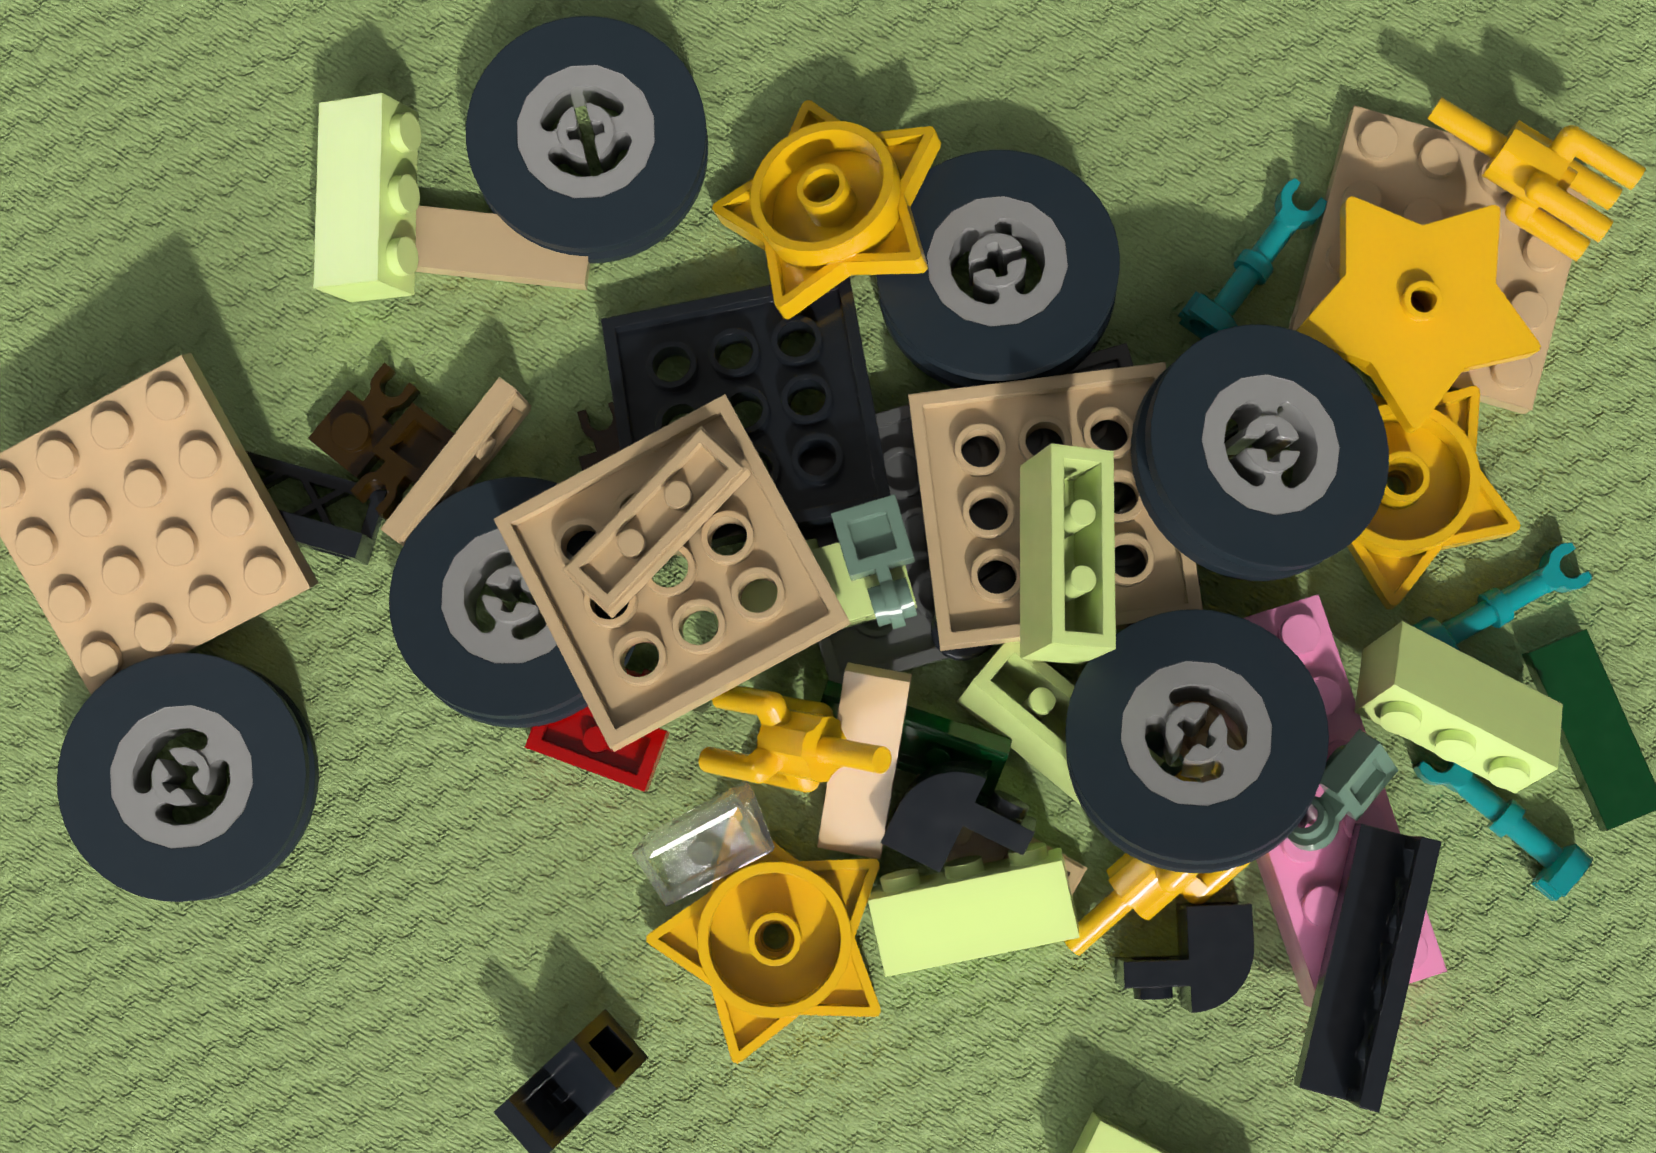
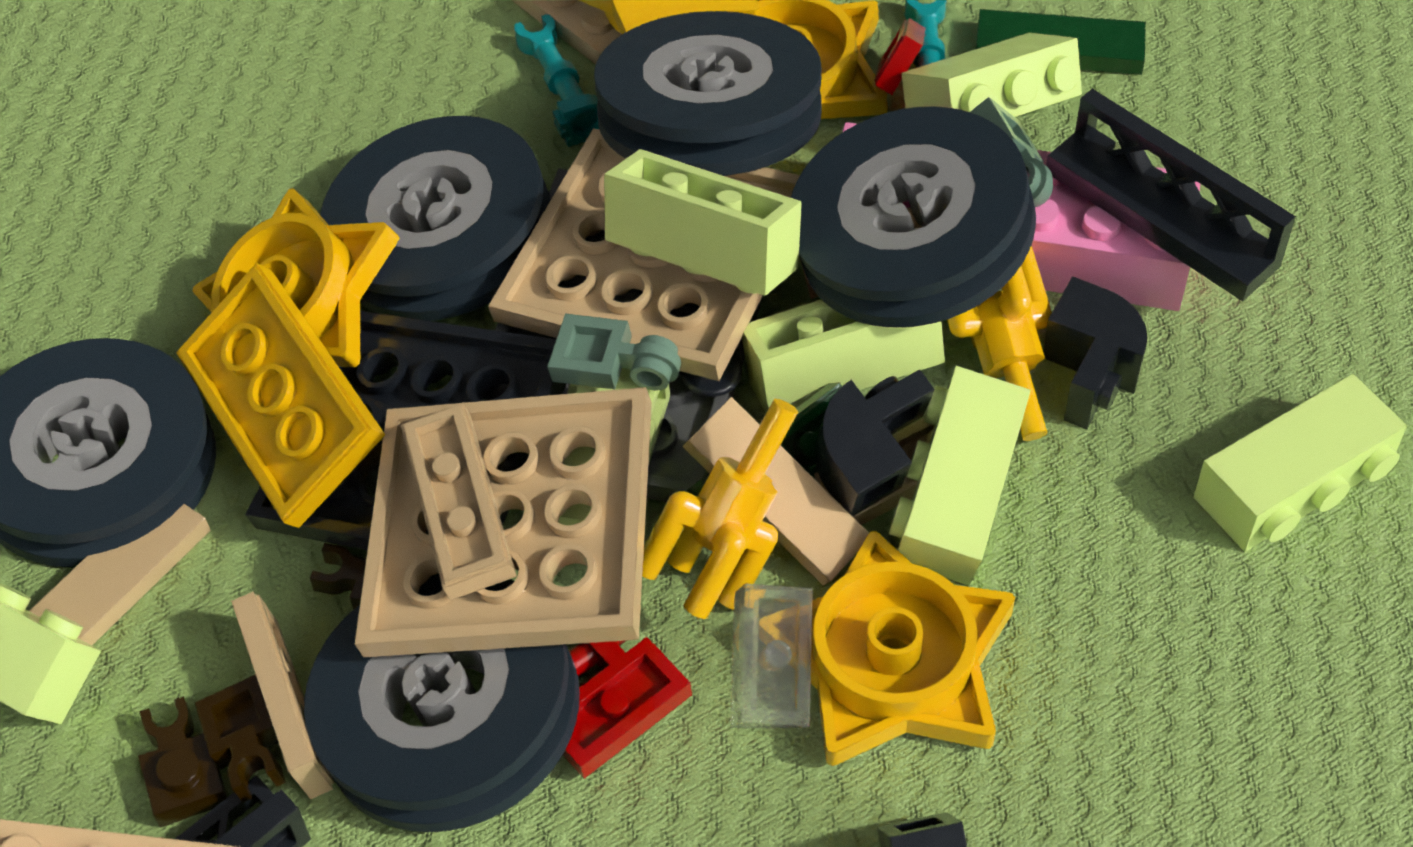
camera: 55 degrees left, 30 degrees down
(706, 278) = (279, 395): none -> yellow tile
(1447, 596) = (899, 55): none -> red tile
(1561, 865) = (1158, 96): teal piece -> none

